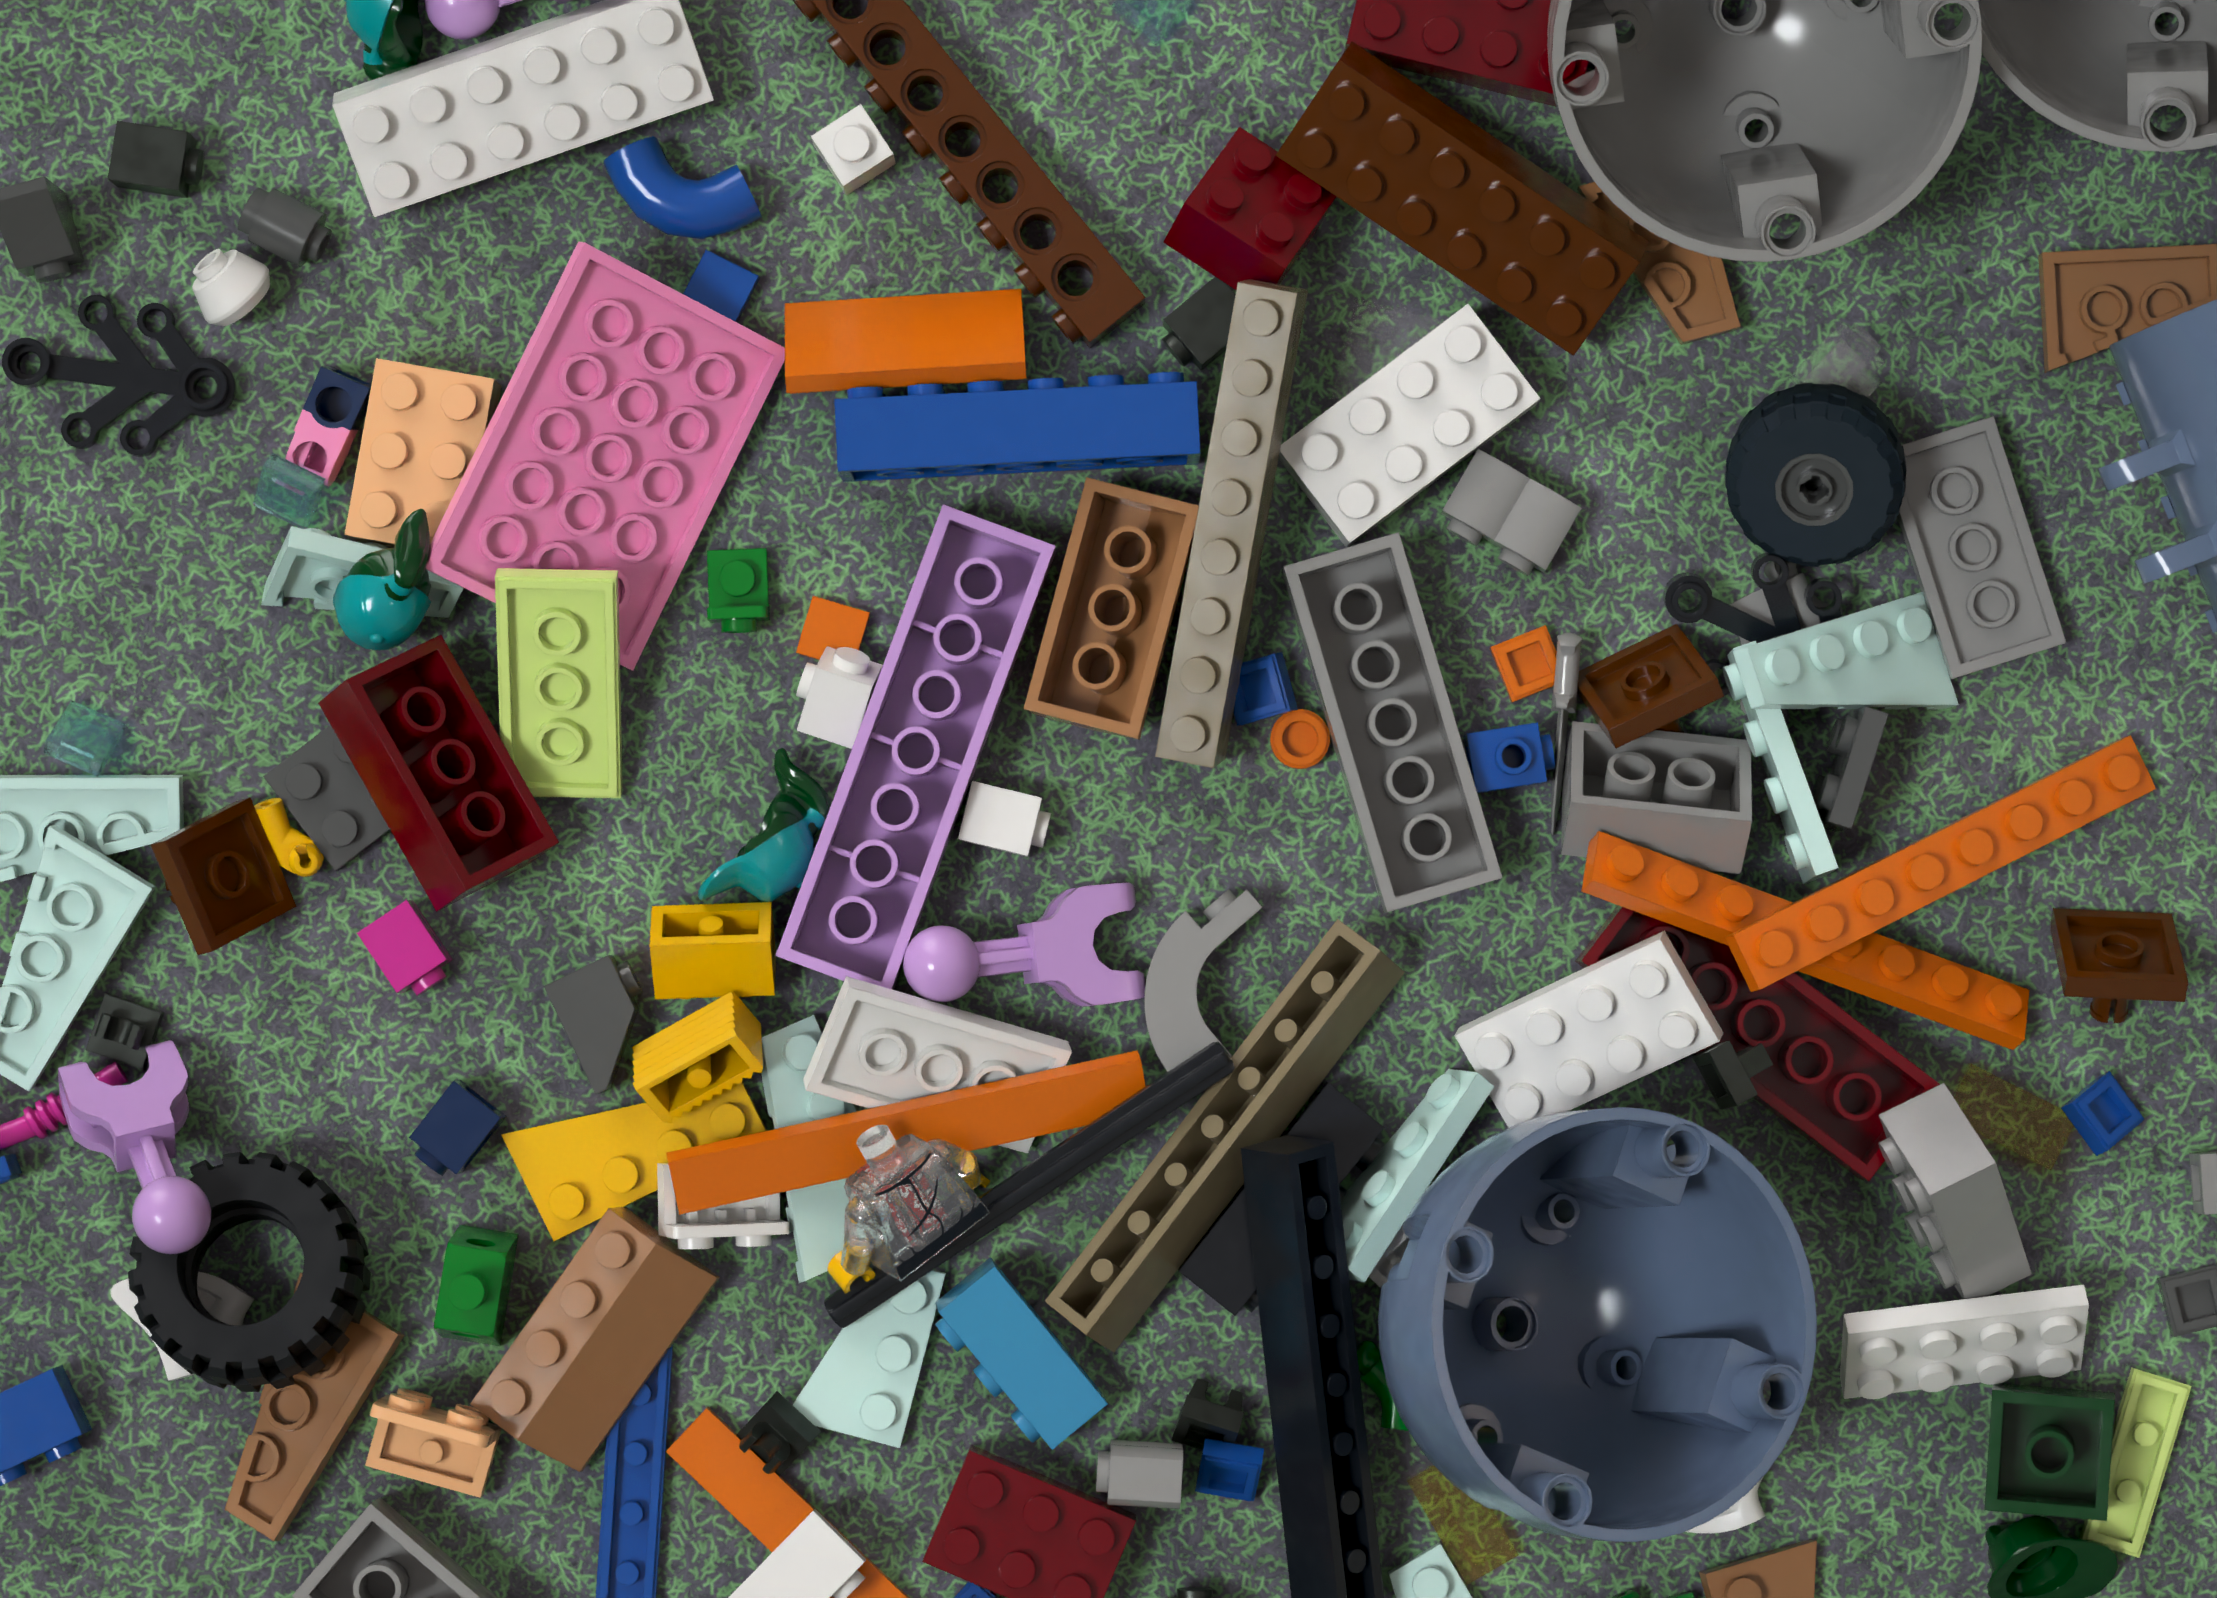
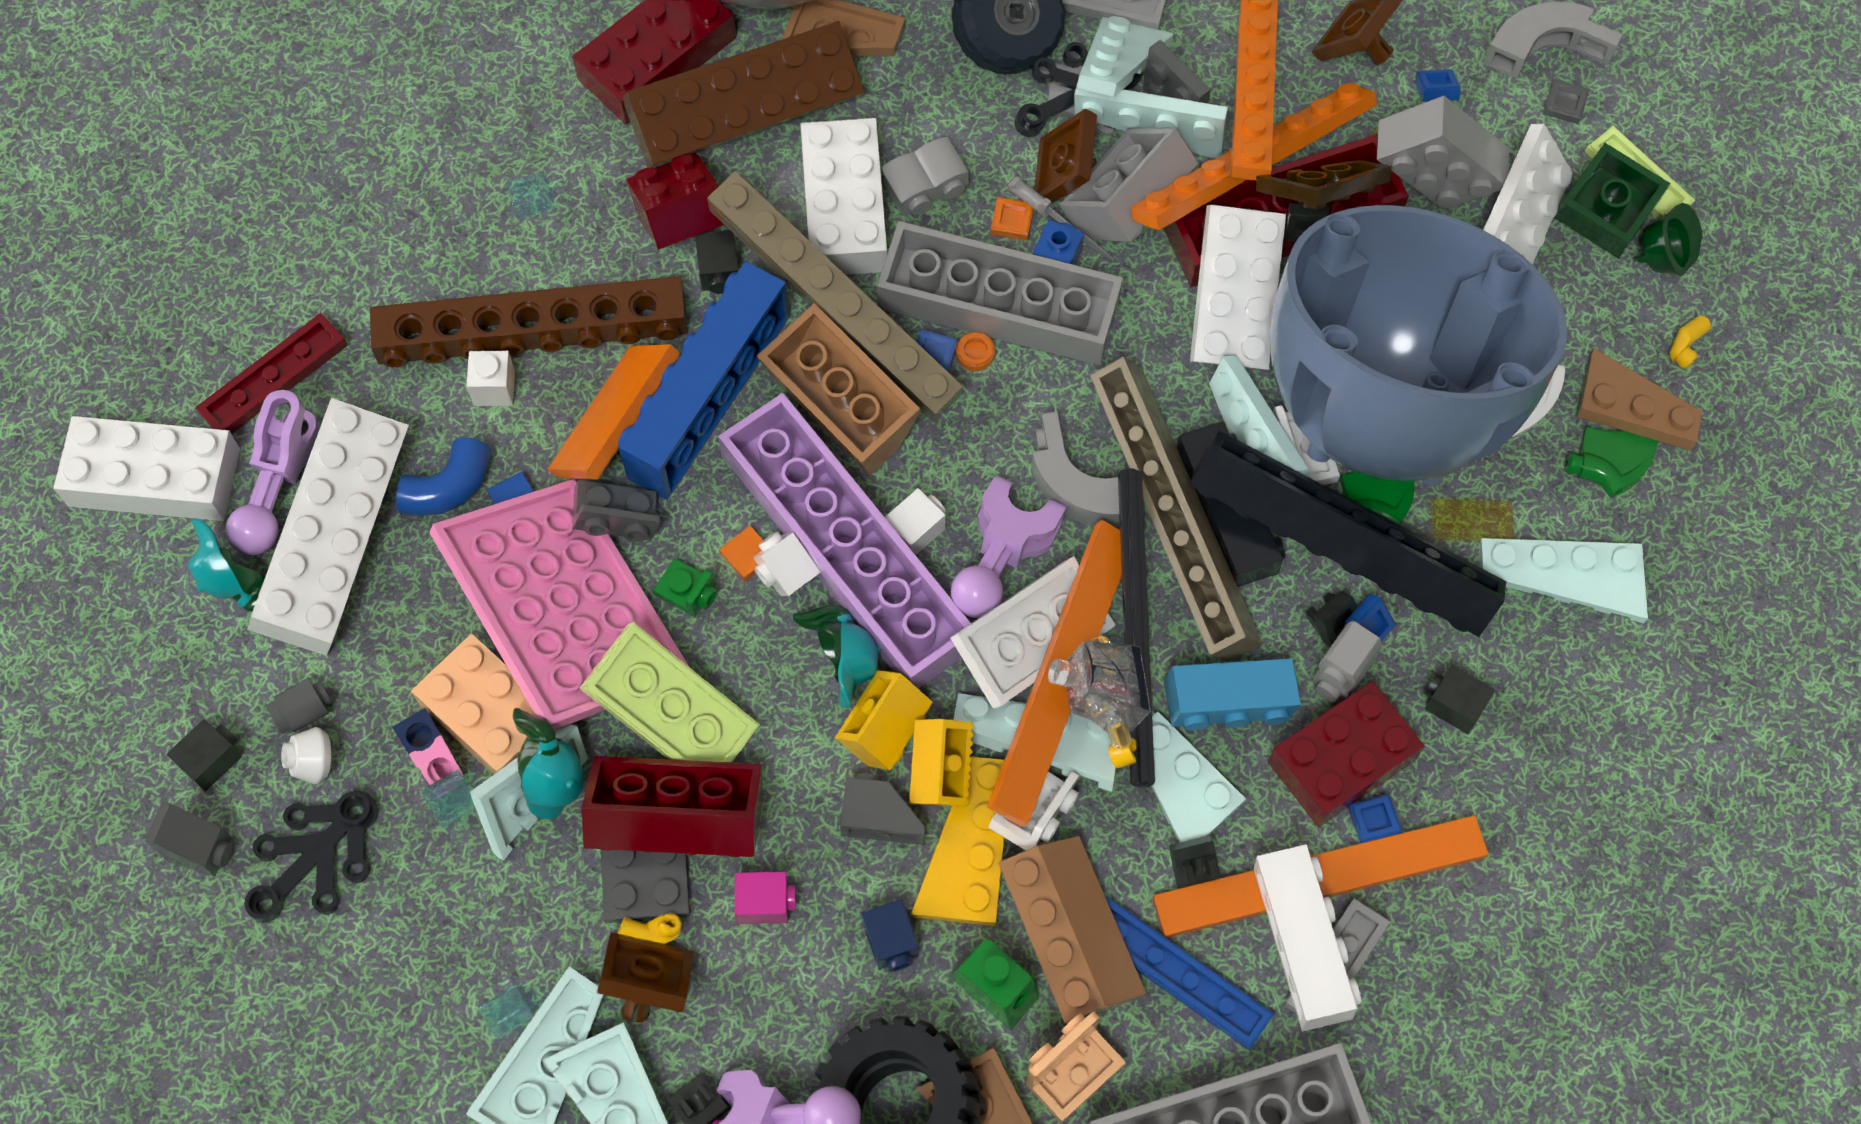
camera: 55 degrees left, 20 degrees down
(776, 435) = (615, 511): none -> dark grey bracket
(1788, 1076) = (1332, 183): none -> dark brown wing

